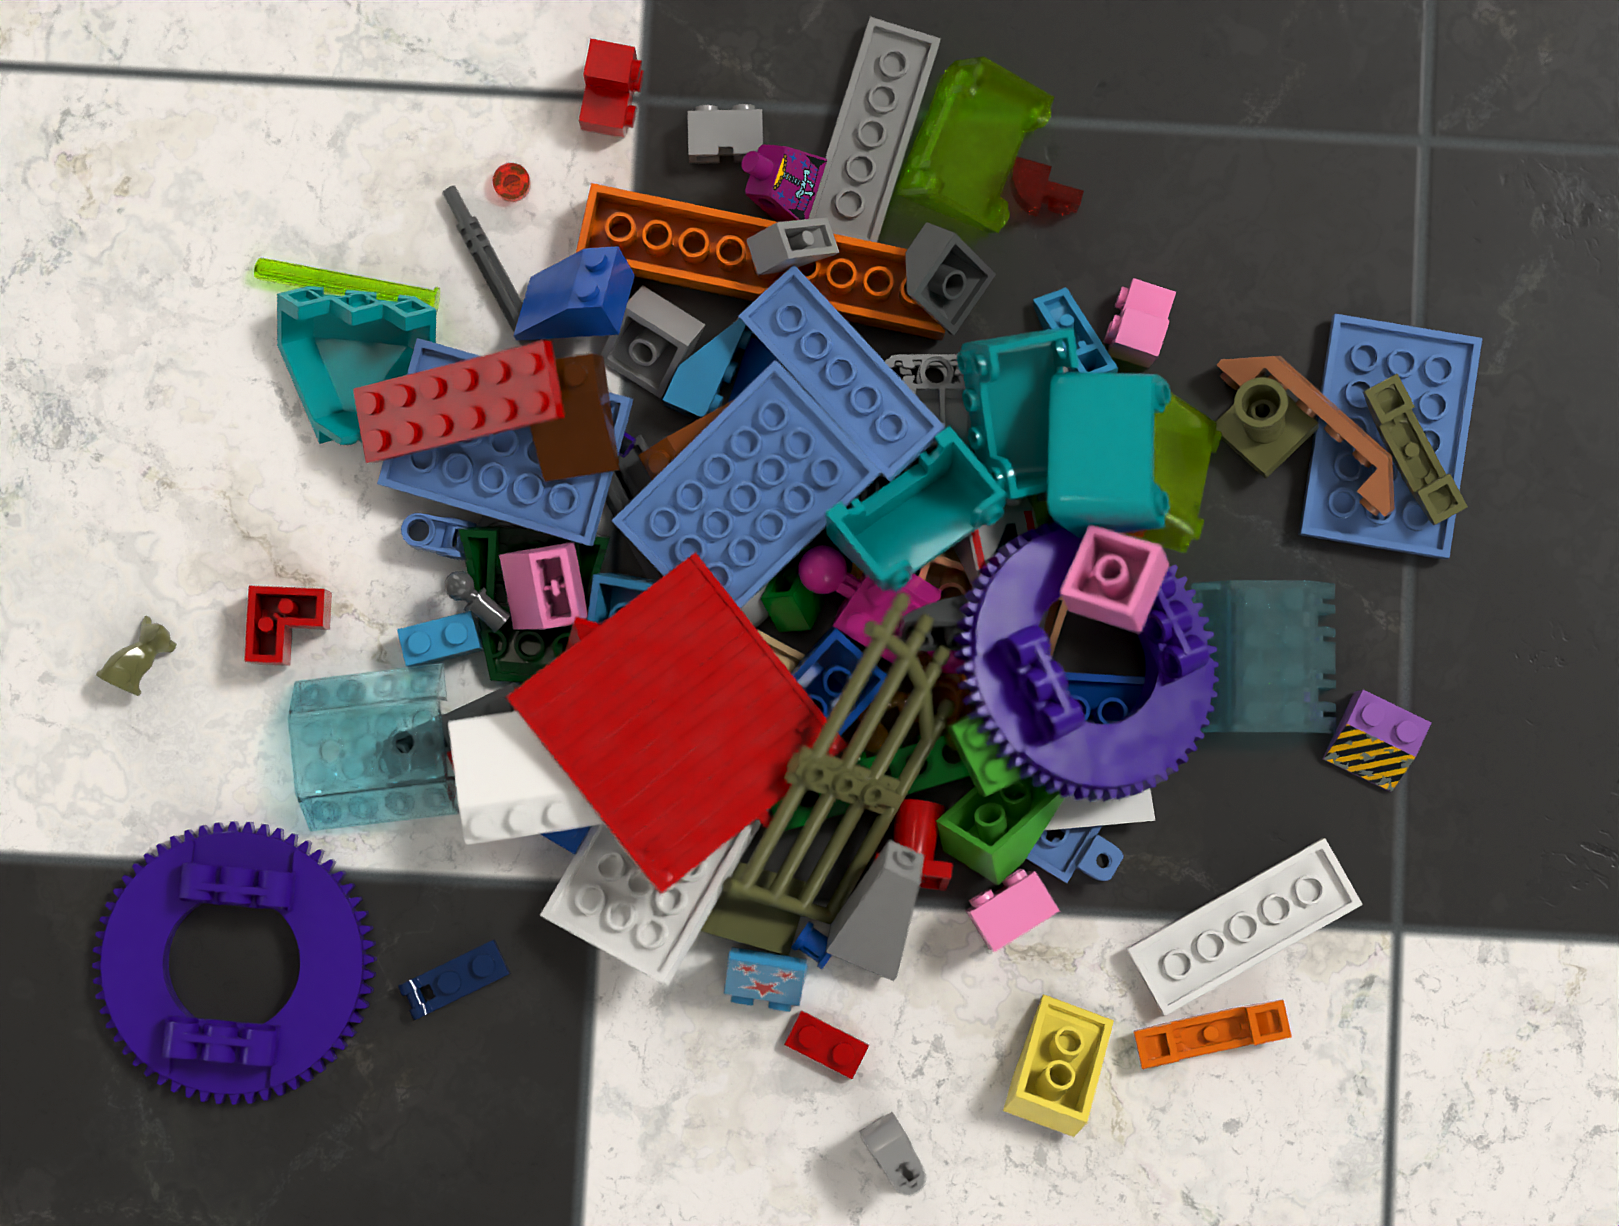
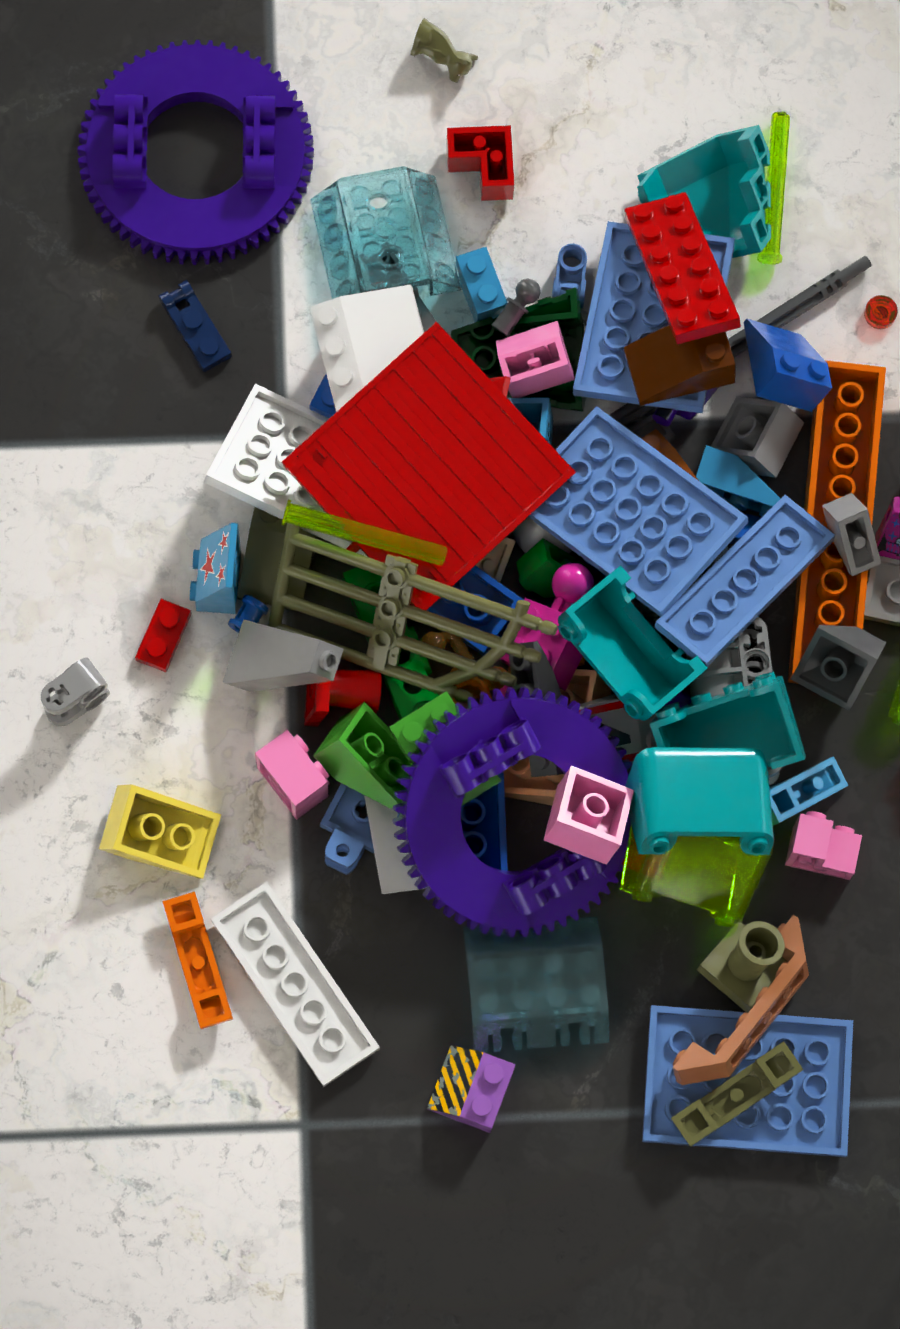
camera: 85 degrees right, 10 degrees down
(755, 805) = (364, 534): none -> clear neon green axle

